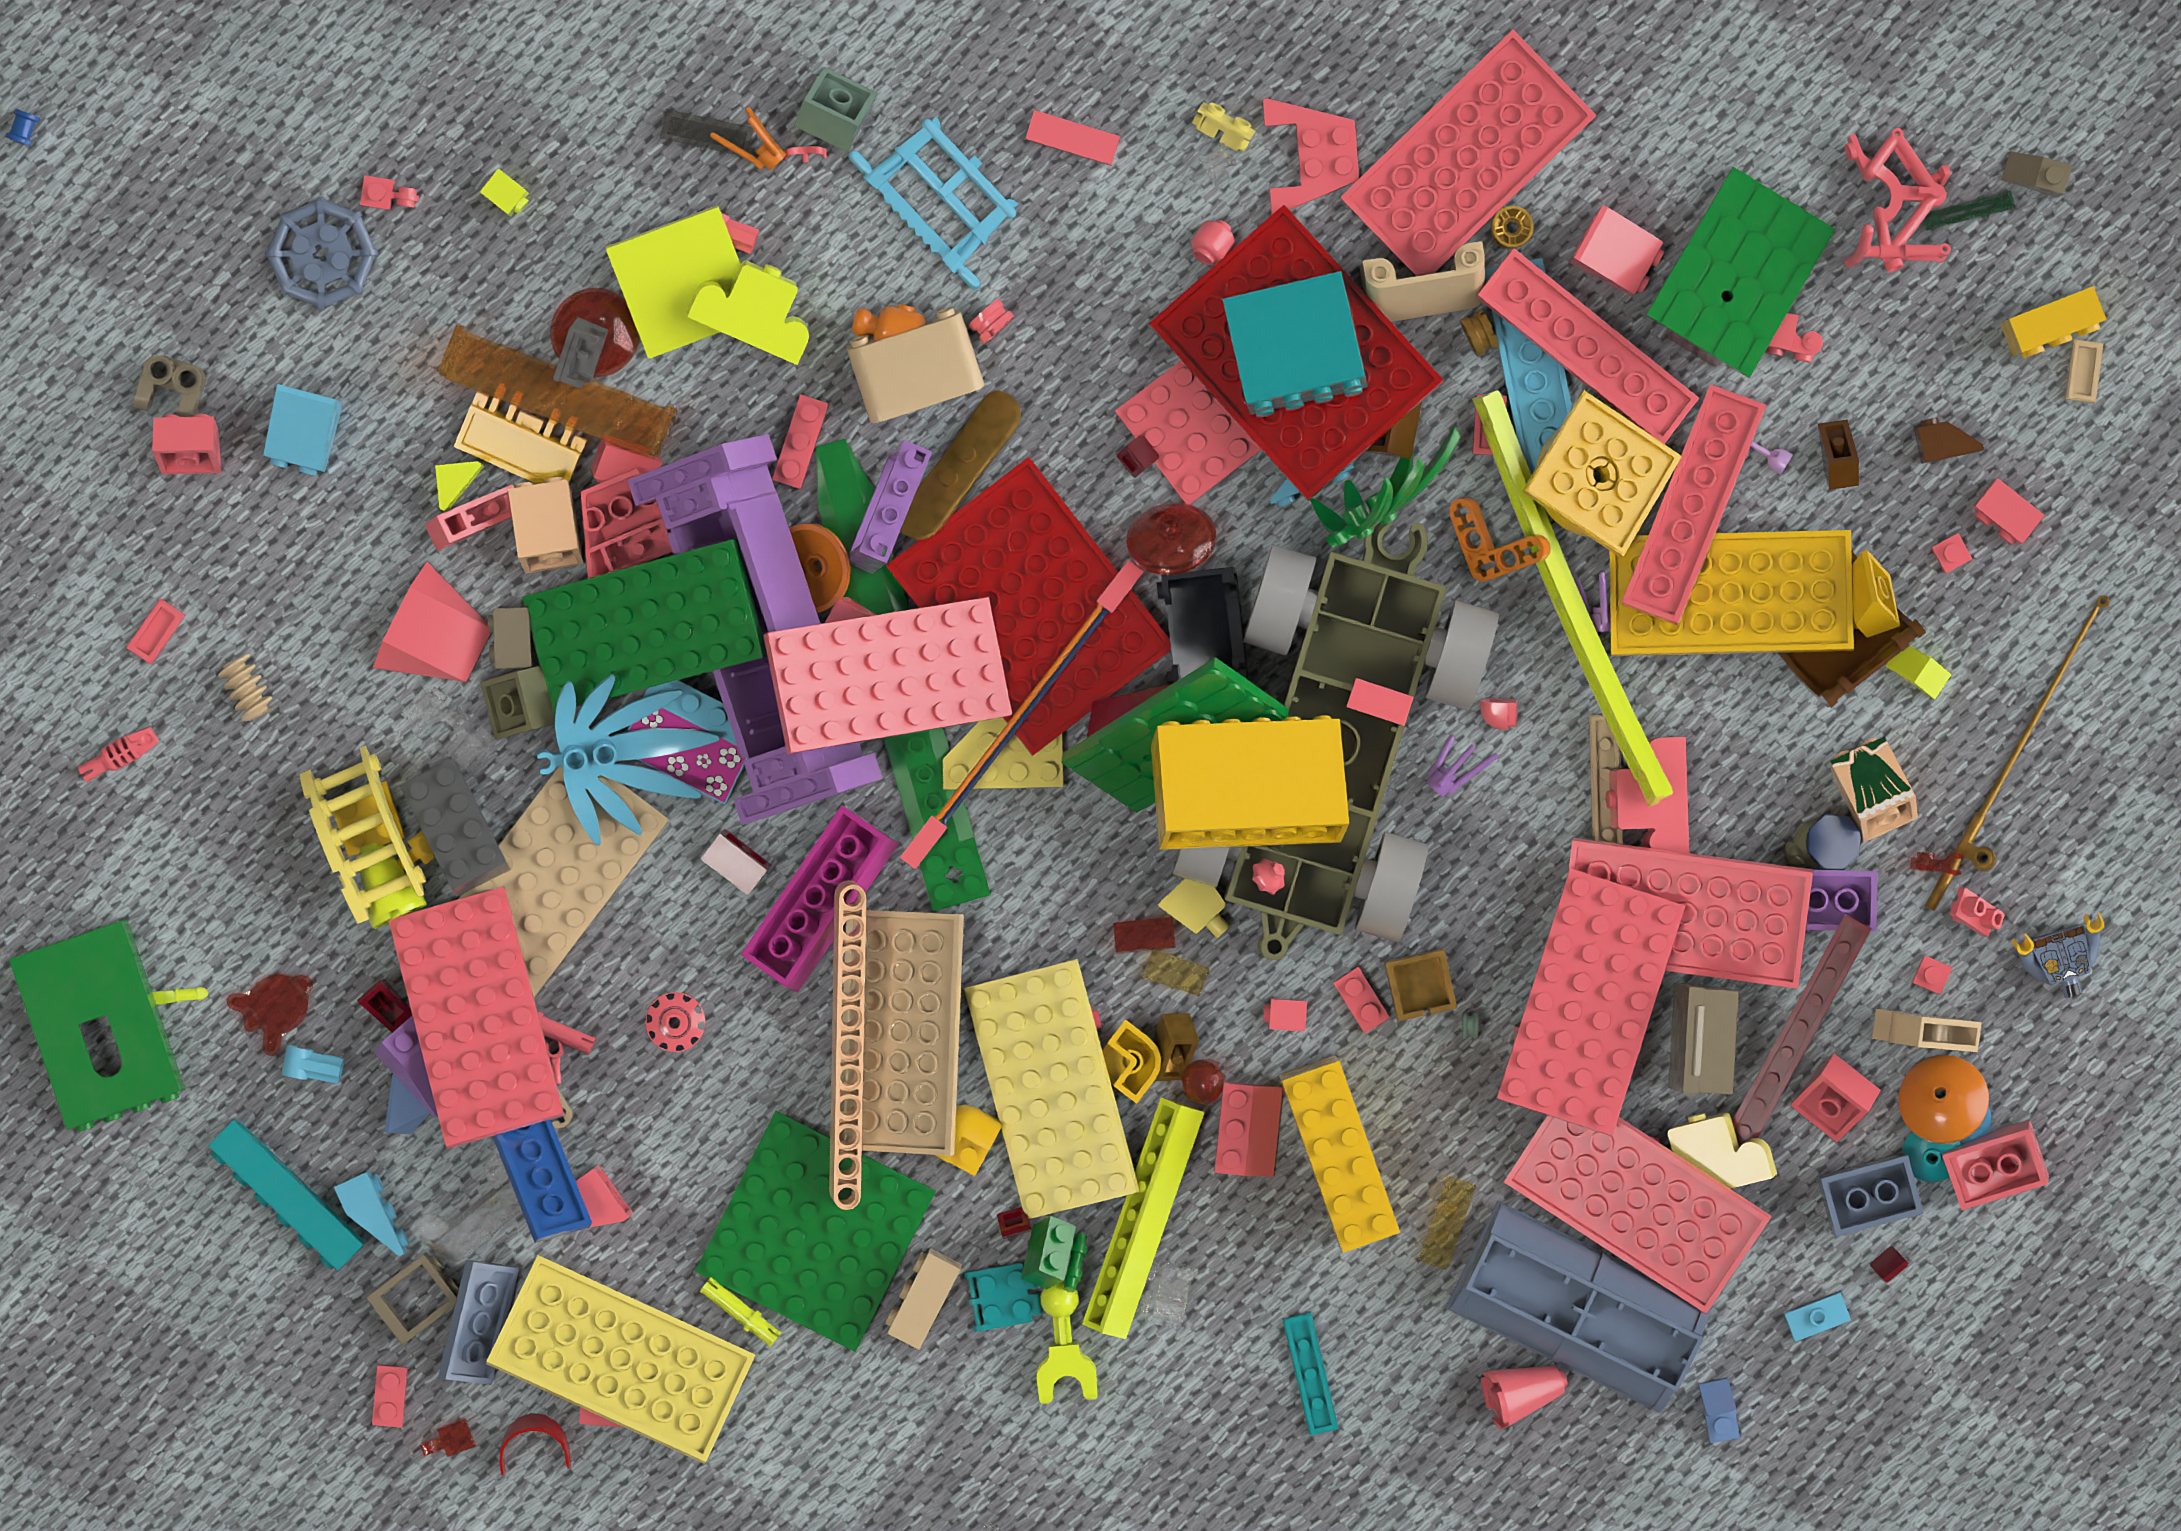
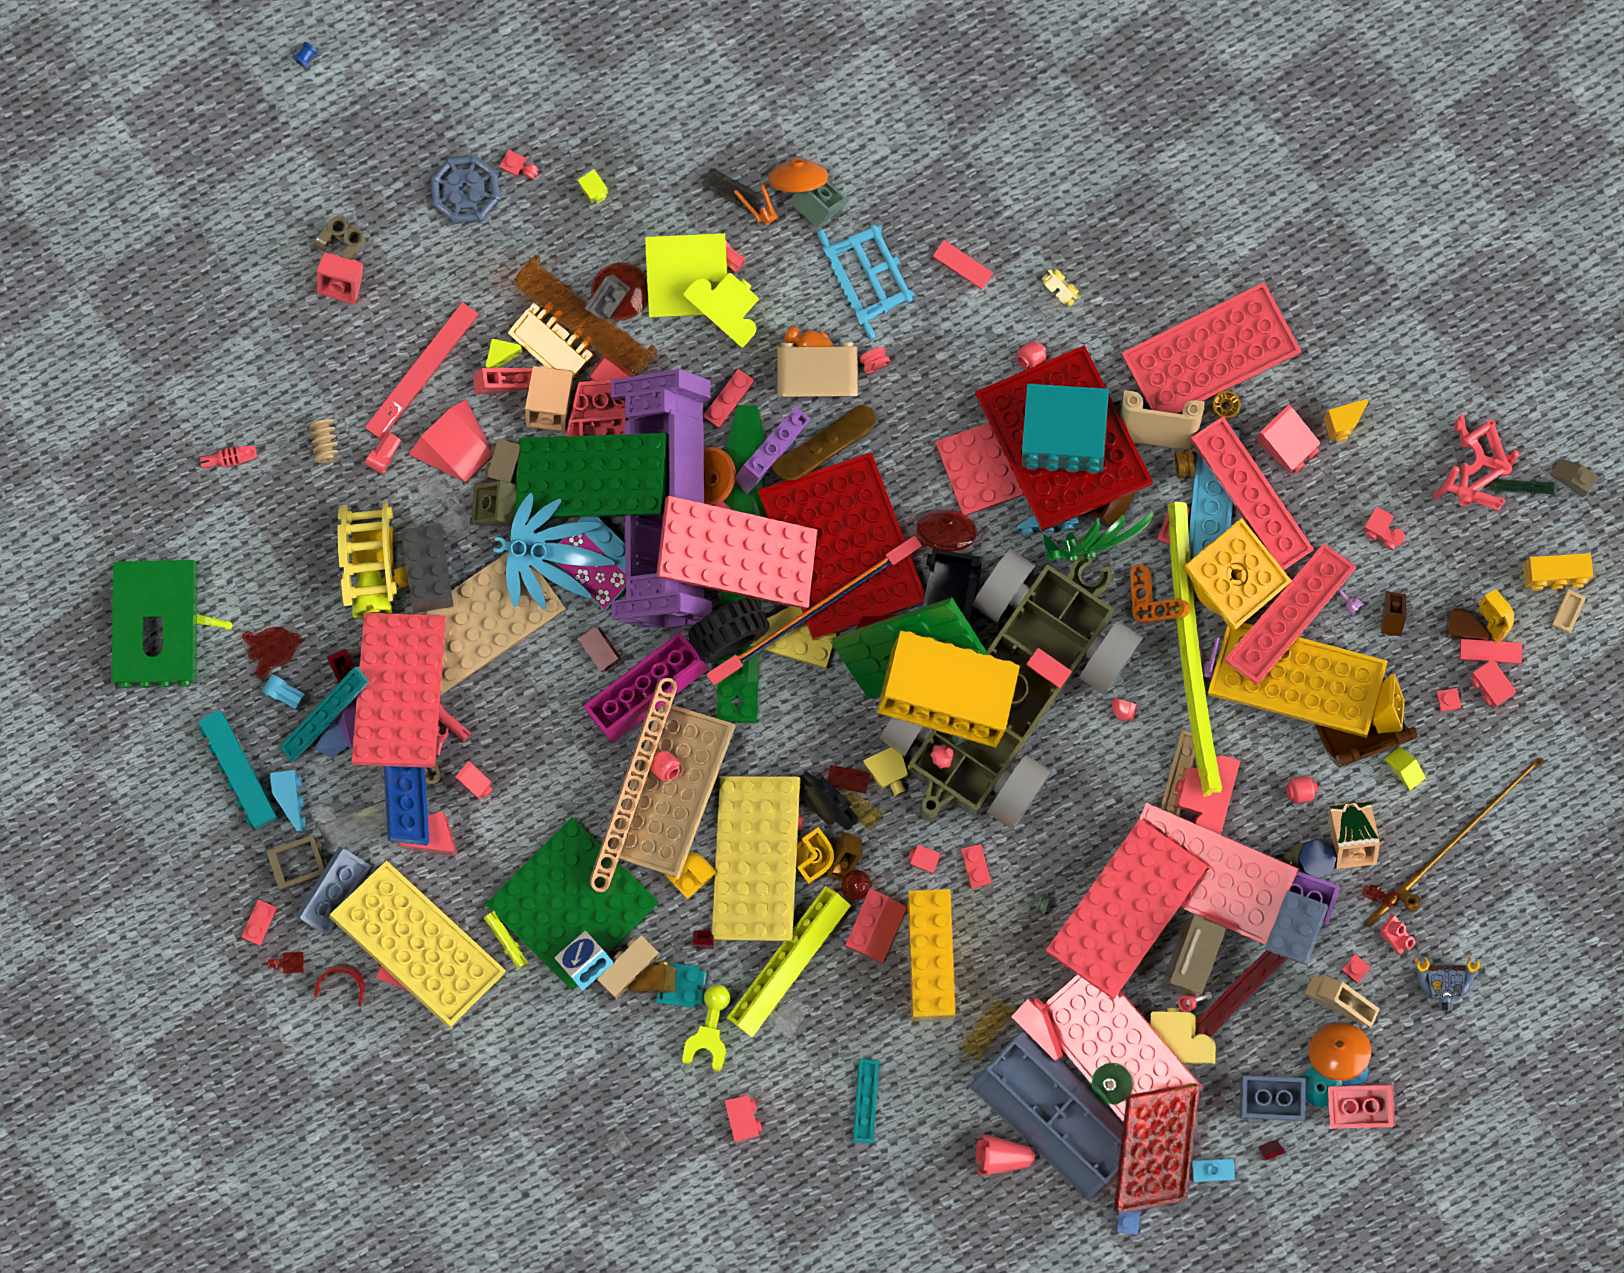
camera: 20 degrees right, 10 degrees down
(155, 631) = (279, 388): coral tile -> none
(301, 429) = (415, 290): medium azure slope -> none
(336, 680) = (382, 455): none -> coral piece
(350, 540) = (422, 371): none -> coral tile
(382, 1083) = (324, 714): none -> teal tile
(624, 1109) = (474, 781): none -> coral slope
(686, 1010) = (533, 747): coral dish -> none
(795, 86) = (798, 176): none -> orange dish
(805, 151) = (790, 221): coral piece -> none
(860, 1311) = (584, 960): none -> piece
(884, 1004) = (665, 766): none -> coral head
(911, 787) = (728, 629): none -> black tyre
(967, 1302) = (655, 979): none -> pearl gold slope
(1049, 1254) = (720, 963): green brick -> none
(1126, 978) = (827, 801): none -> black hinge
(1138, 456) = (941, 474): dark red slope -> none
(1148, 1454) = (742, 1118): none -> coral brick
(1324, 150) = (1120, 323): coral wing -> none
(1420, 983) = (1018, 866): pearl gold piece -> none
(1443, 780) = (1073, 739): medium lavender plant -> none
(1515, 1196) = (1037, 1024): none -> slope
(1652, 1237) = (1119, 1076): none -> clear green dish
(1688, 198) = (1343, 419): none -> yellow slope
(1711, 1099) = (1189, 1000): none -> coral hinge
(1732, 1320) = (1156, 1148): none -> clear red plate
(1757, 254) = (1362, 478): green piece -> none
(1782, 748) = (1301, 789): none -> coral head
(1835, 955) = (1296, 927): none -> sand blue brick
(1835, 1097) = (1268, 1028): coral slope -> none
(1988, 411) = (1498, 614): none -> yellow brick
(1990, 464) = (1487, 650): none -> coral tile

